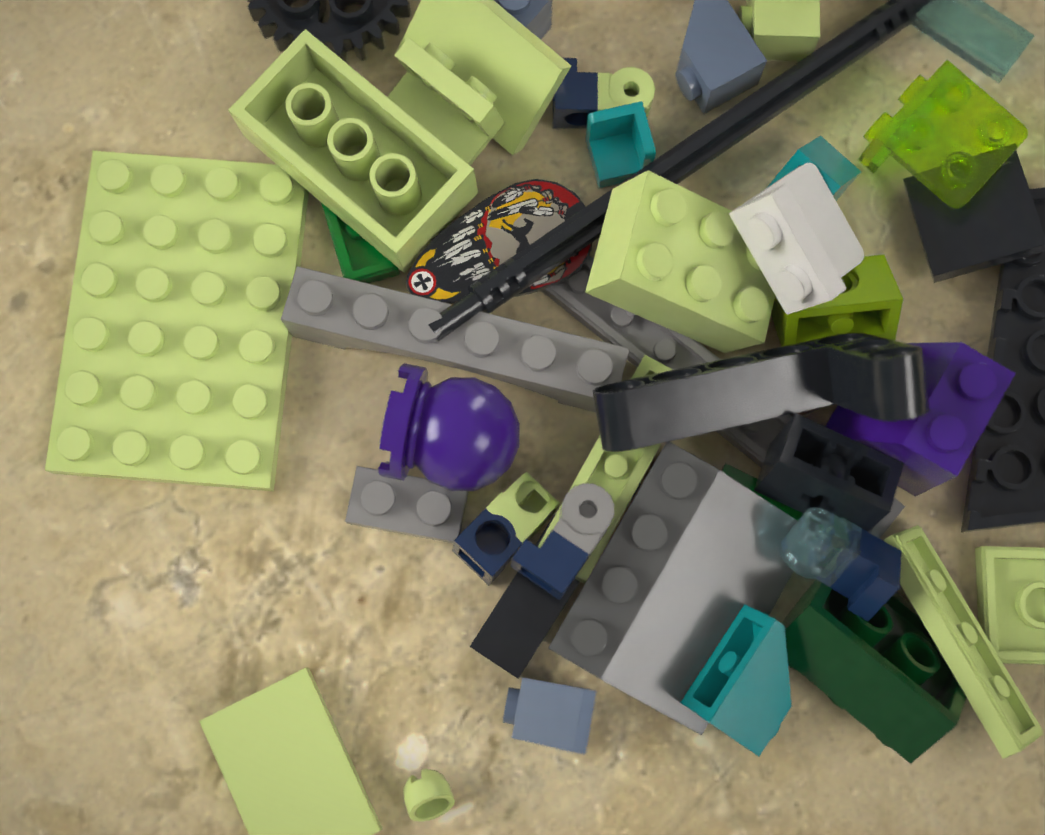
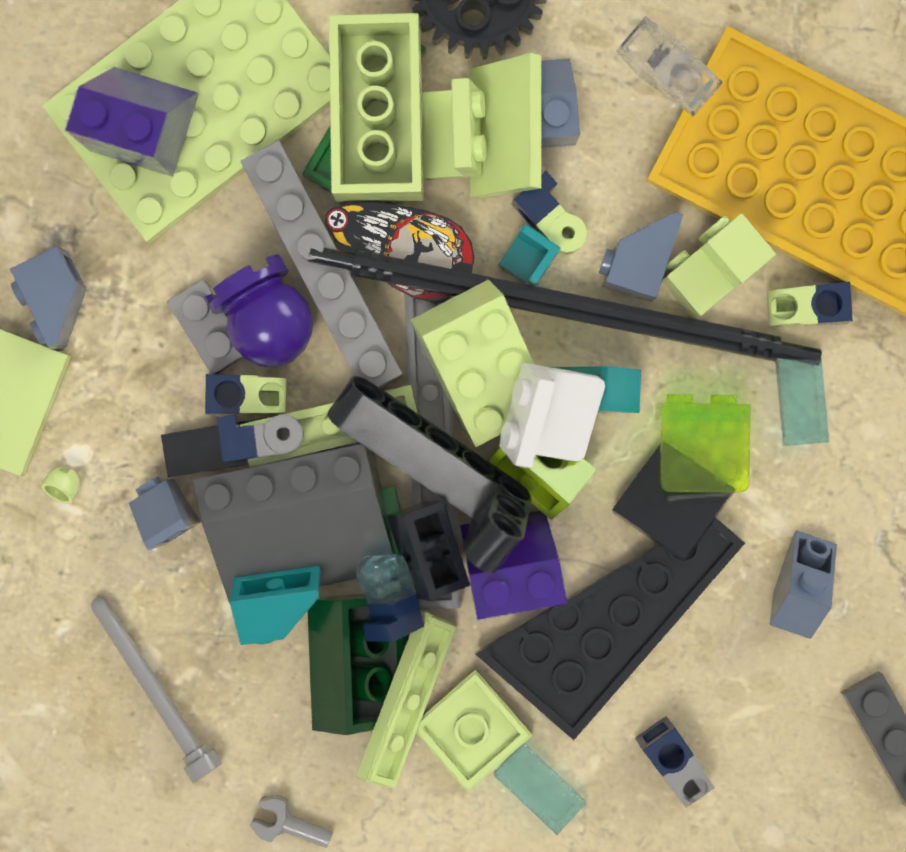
camera: 45 degrees right, 10 degrees up
(146, 387) = (132, 119): none -> slope
(232, 625) = (53, 294): none -> sand blue slope

